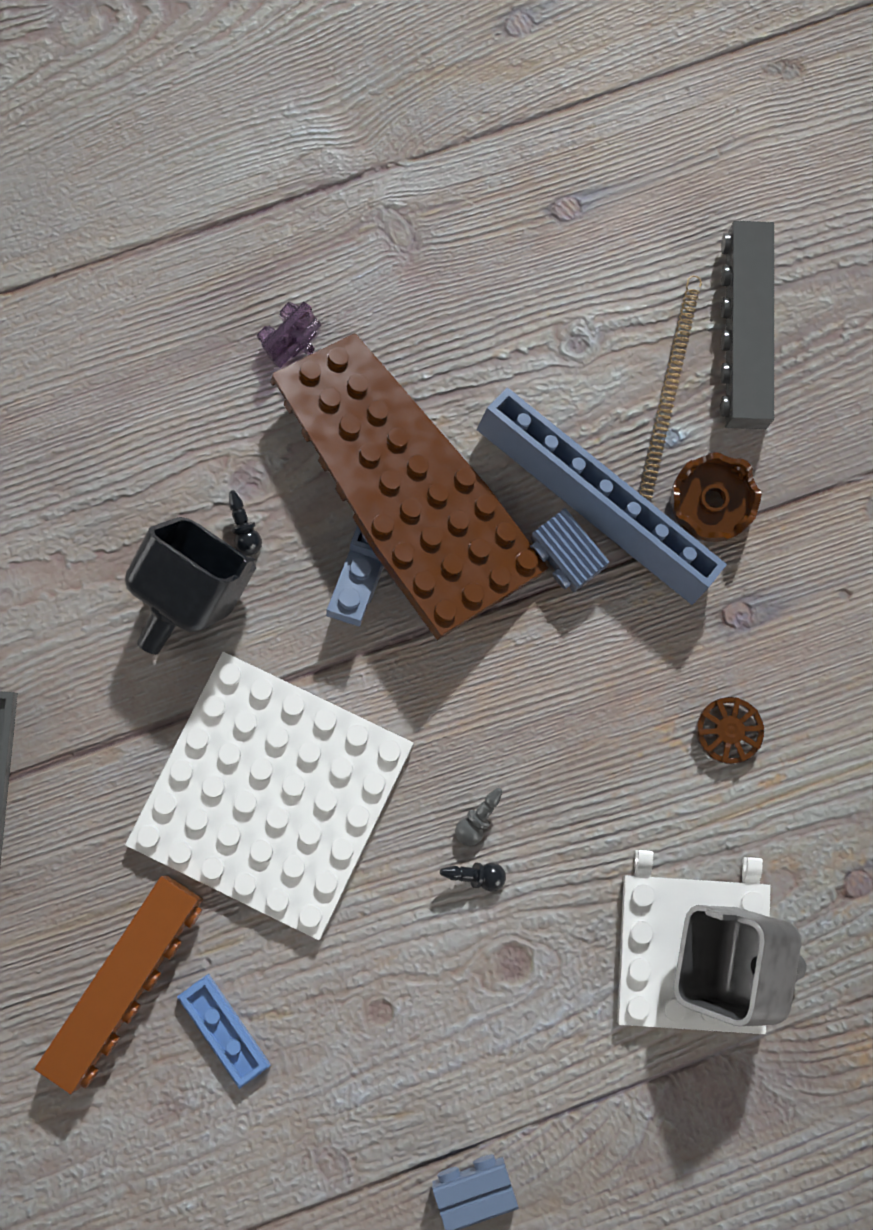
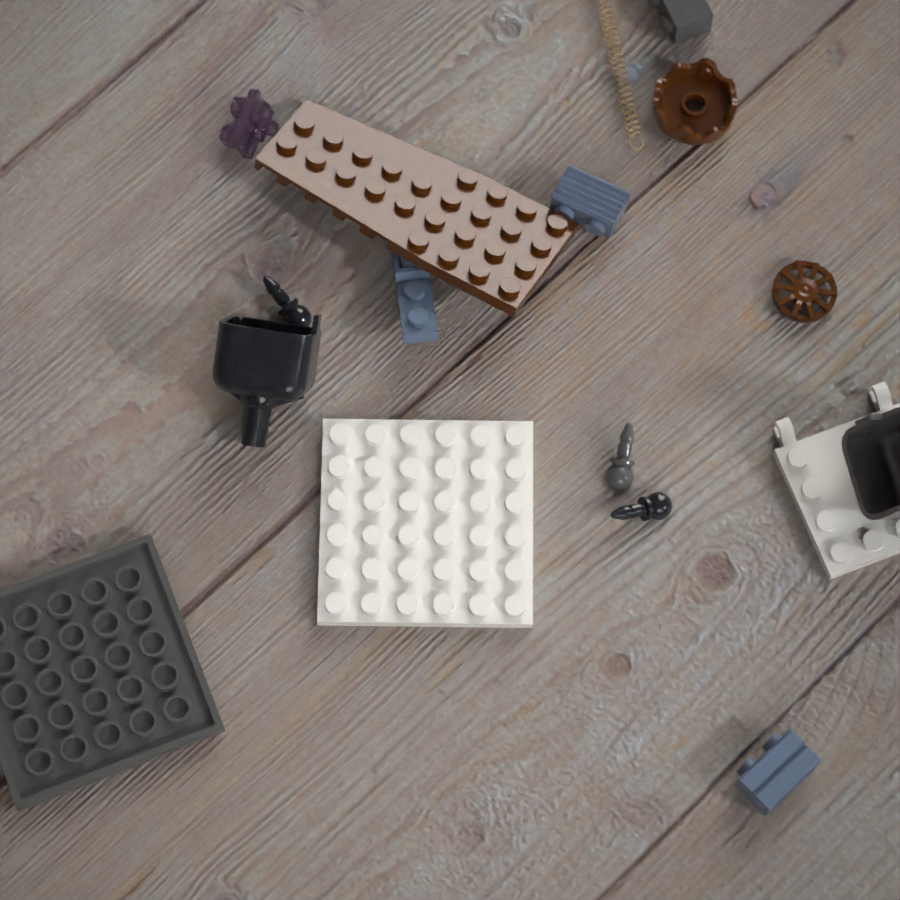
camera: 25 degrees left, 10 degrees down
(118, 985) = (373, 738): dark orange brick -> none
(224, 1031) = (485, 741): medium blue tile -> none
(600, 496) = (594, 142): sand blue brick -> none

